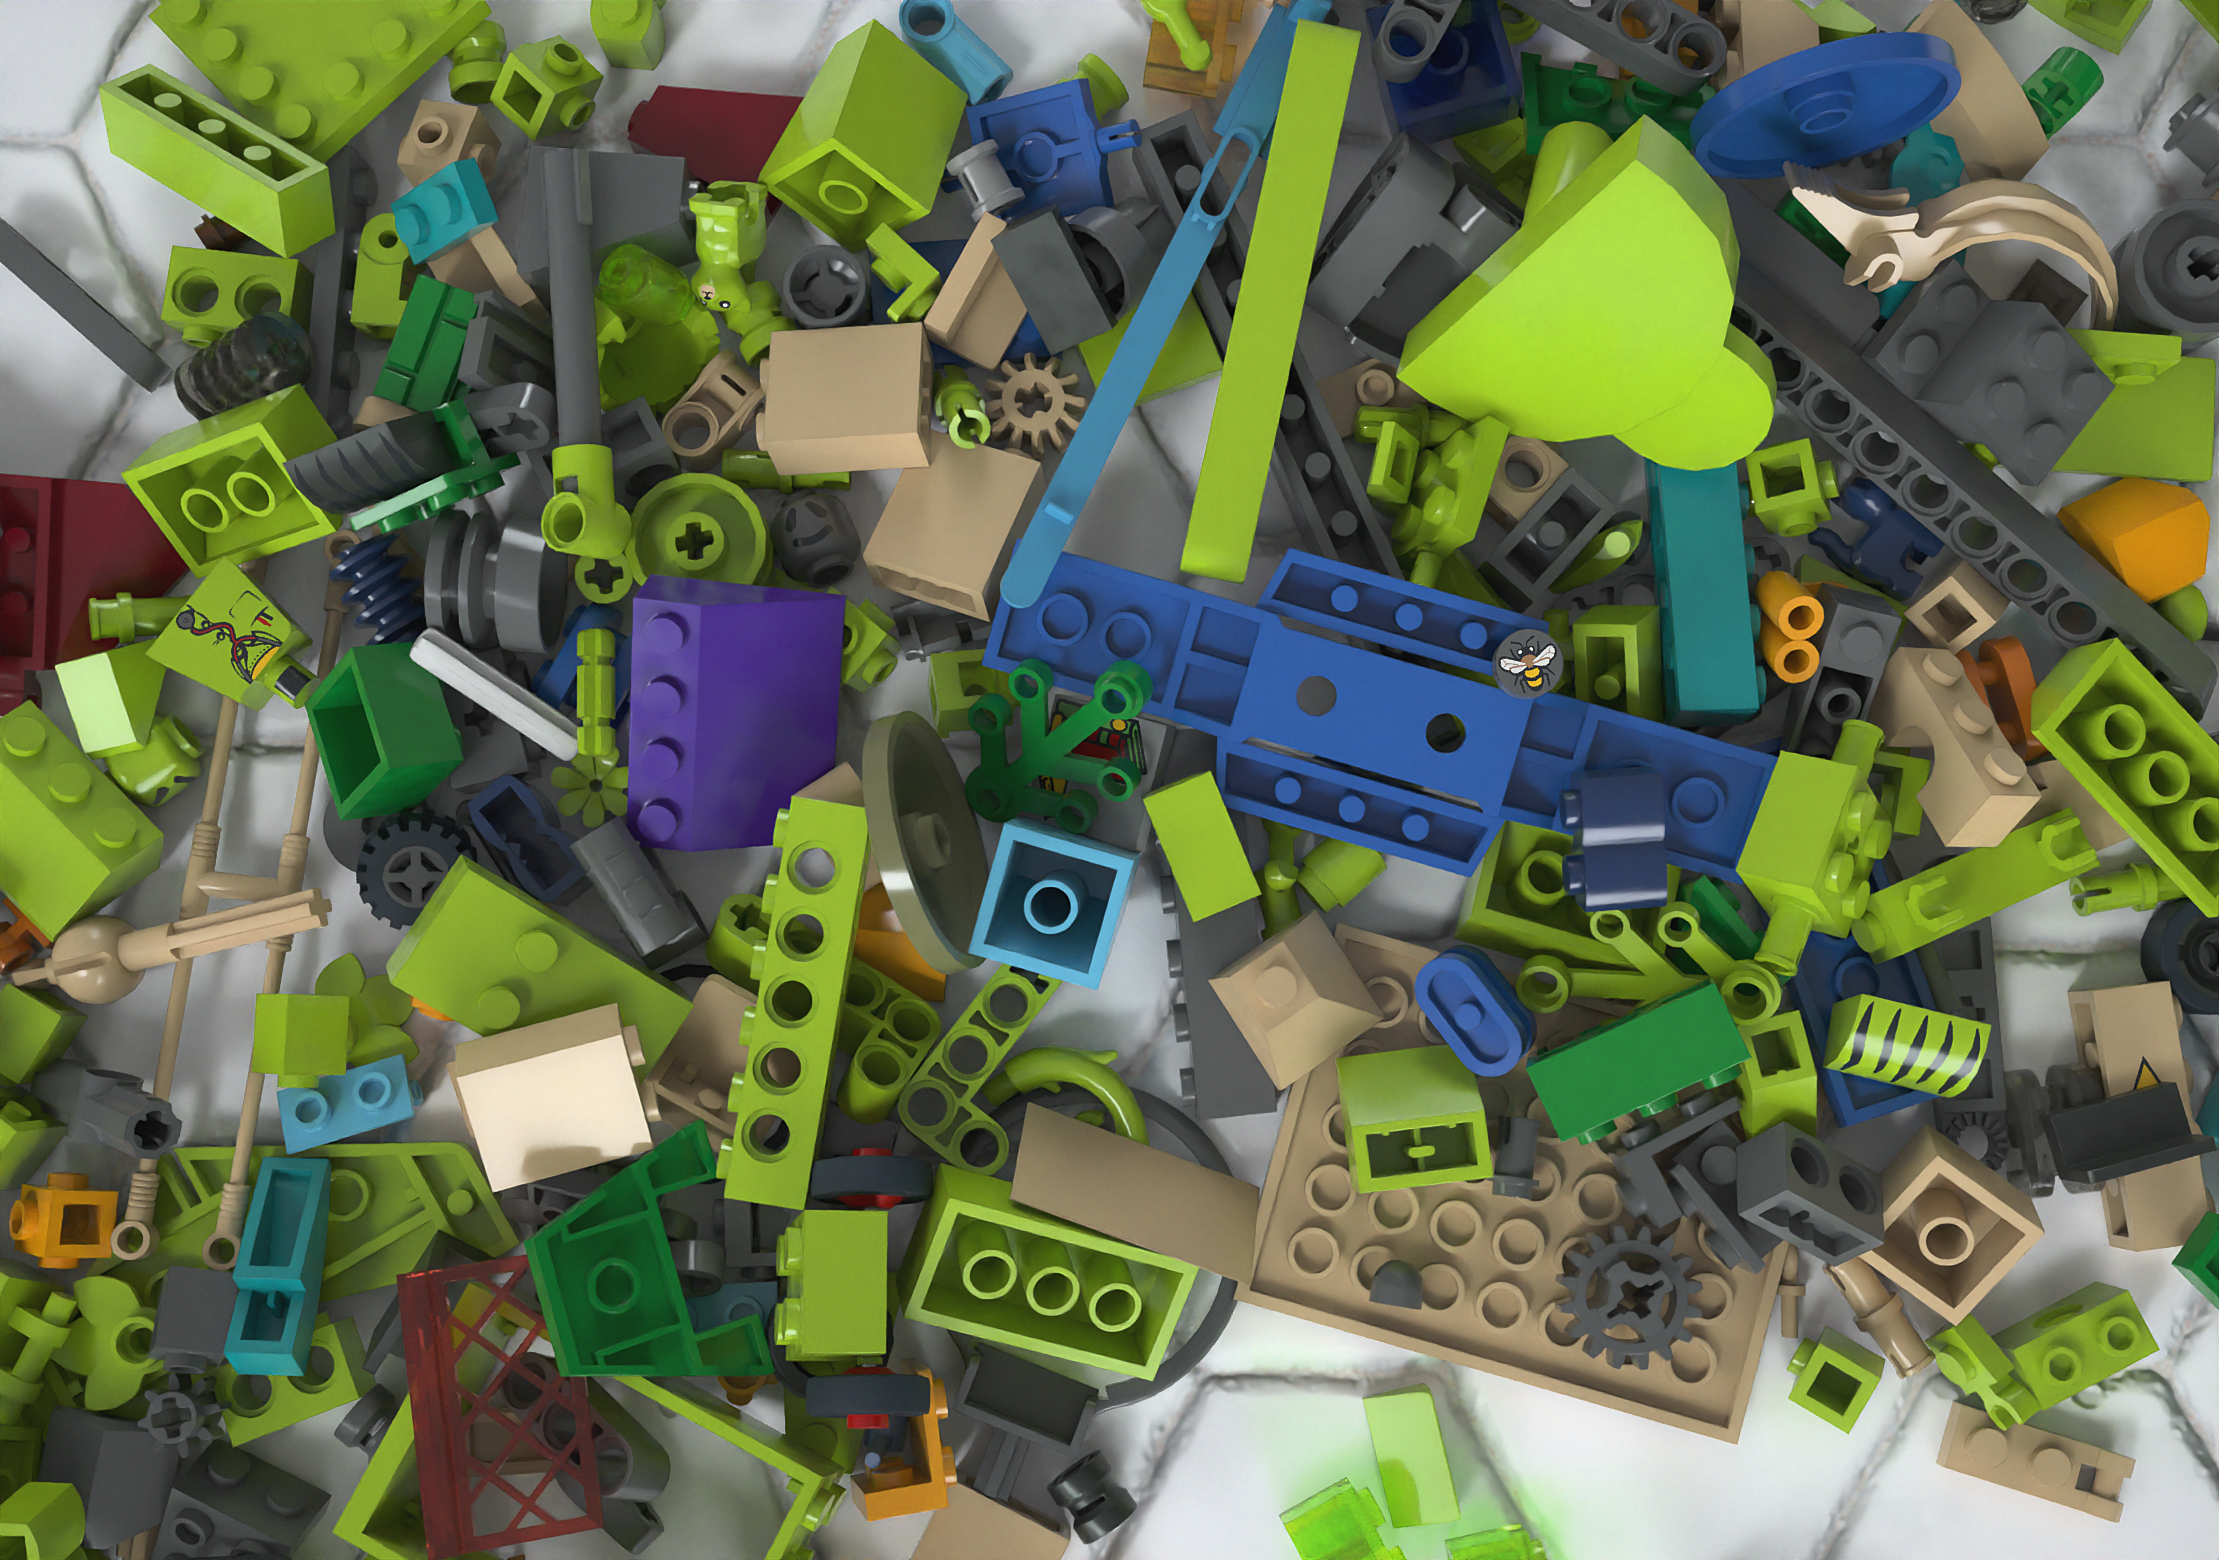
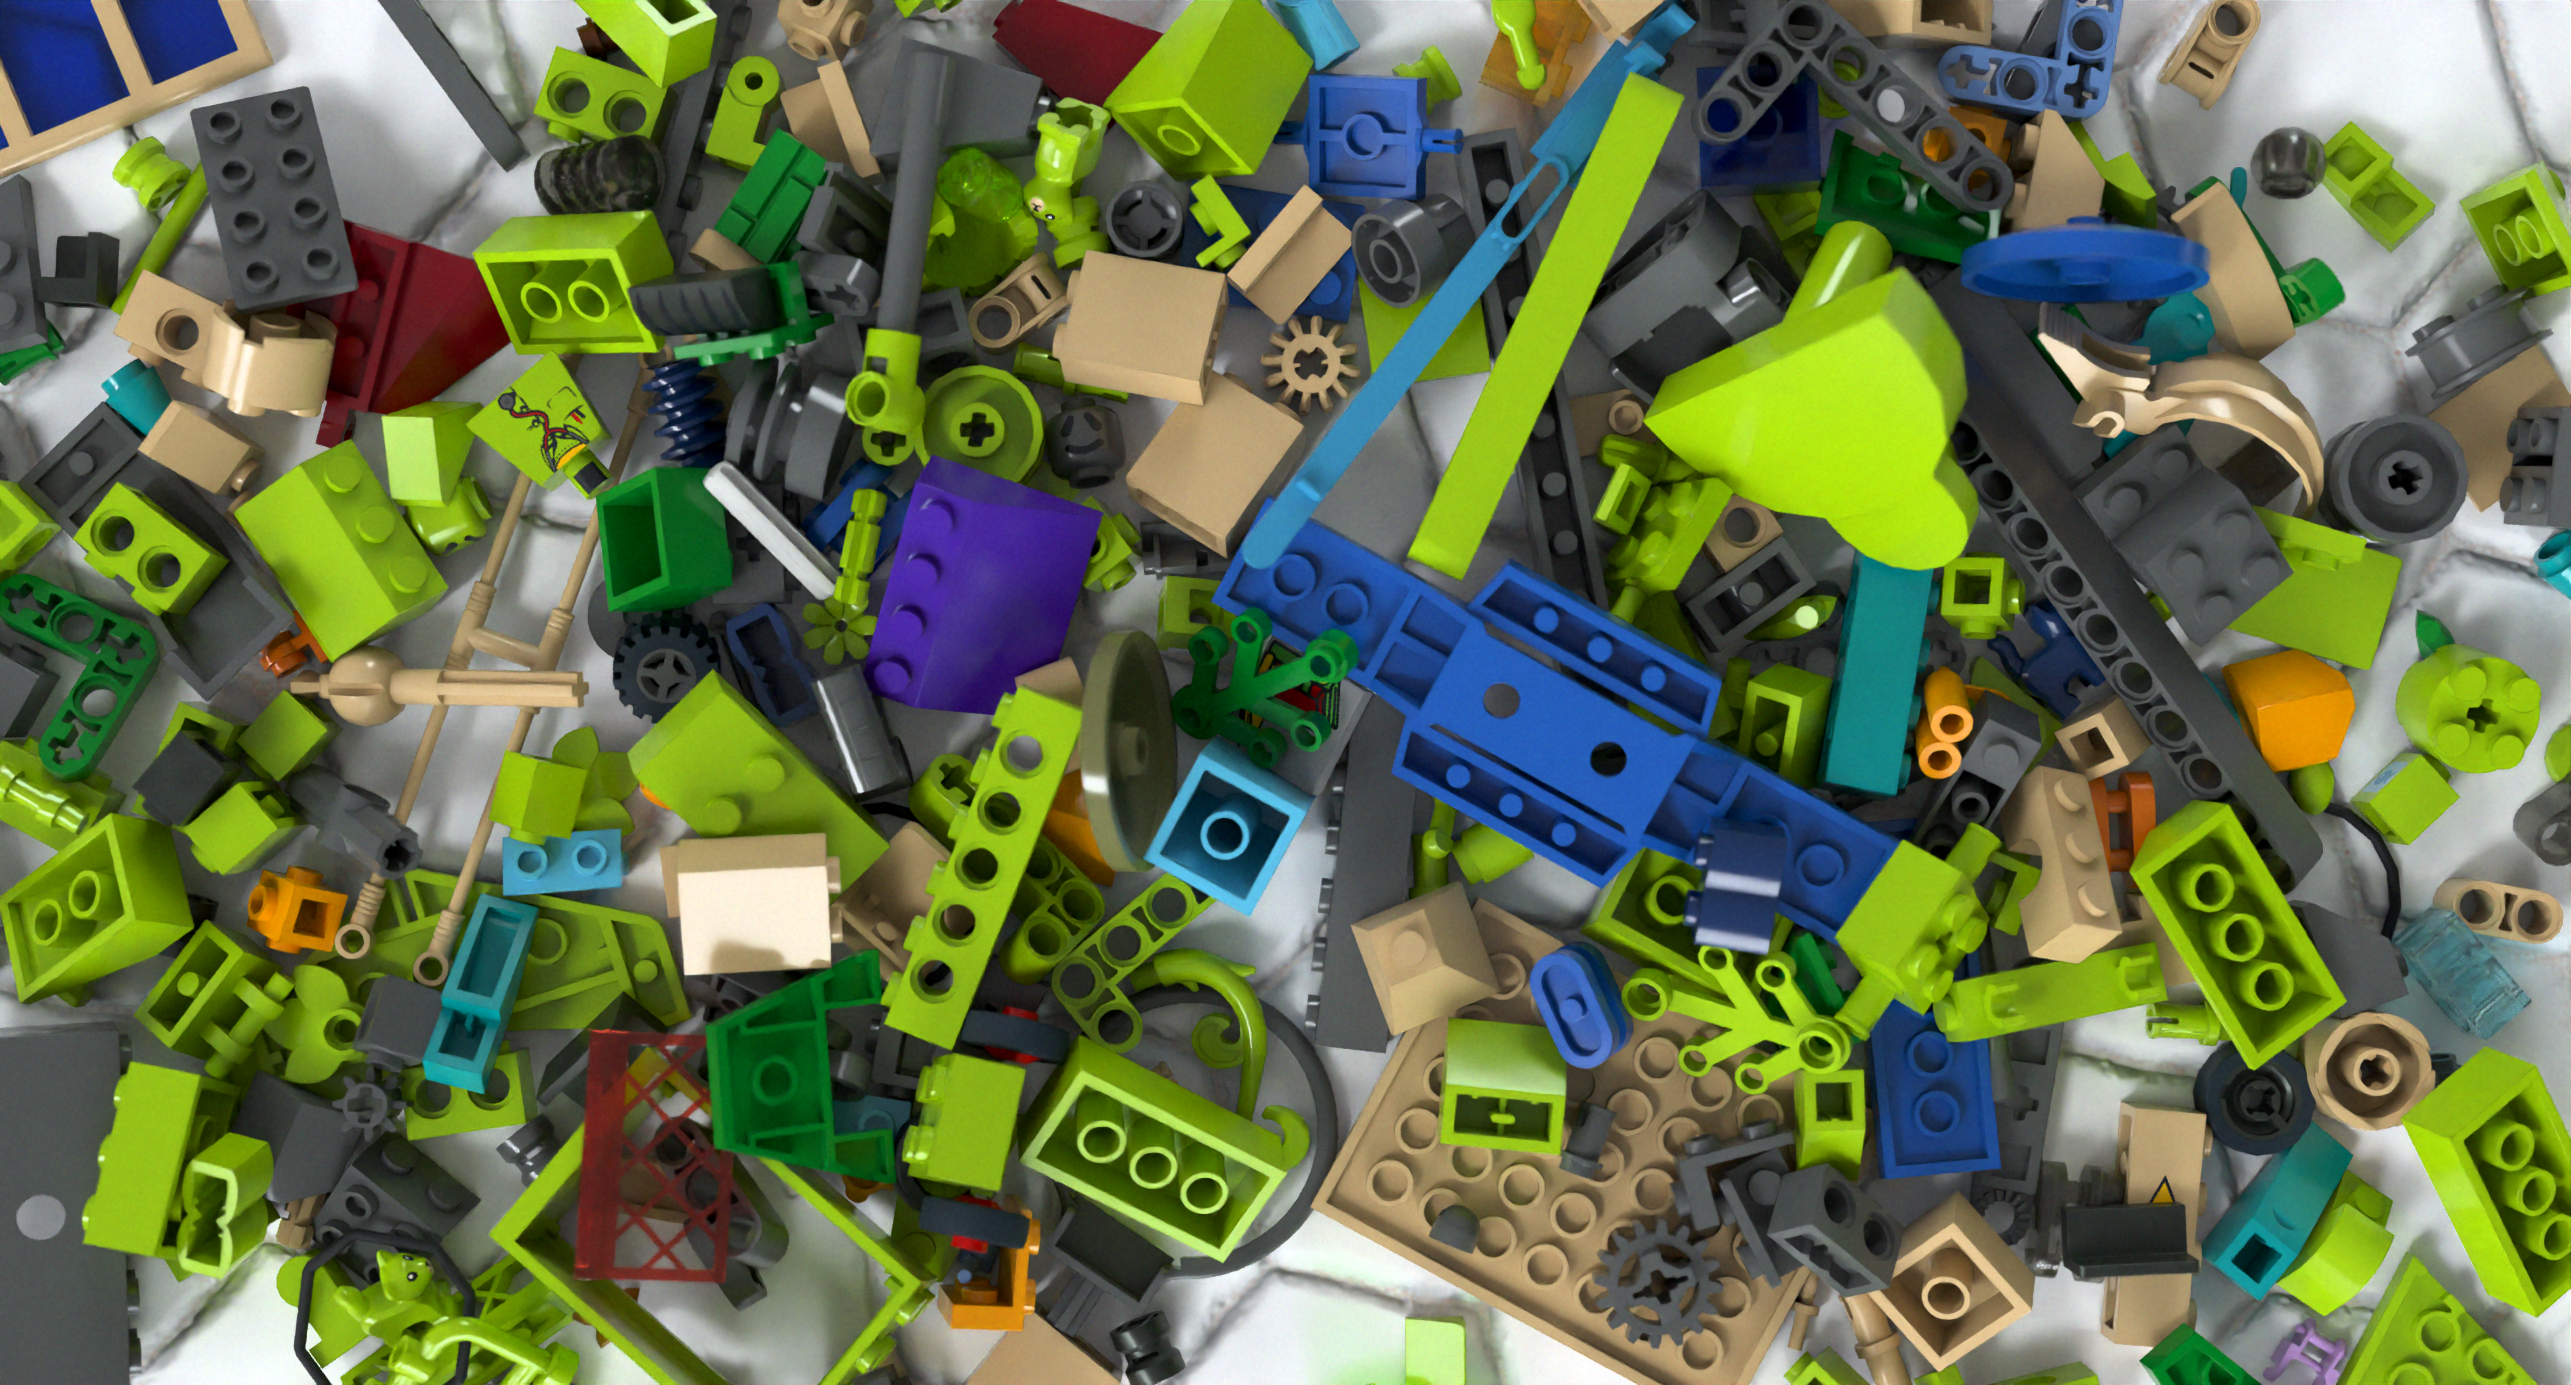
camera: 15 degrees right, 5 degrees up
(131, 616) = (459, 381): lime pin -> none
(444, 211) = (812, 76): teal plate -> none
(960, 407) = (1243, 355): lime pin -> none
(985, 180) = (1311, 151): light grey bush -> none
(1053, 279) = (1352, 261): pearl dark grey brick -> none
(1136, 1193) = (1245, 1097): tan sticker -> none
(1201, 845) = (1369, 805): lime hinge -> none
(1527, 664) = (1693, 717): tile -> none
(1638, 1062) = (1708, 1084): green wedge -> none
(1905, 1045) = (1951, 1120): lime brick -> none

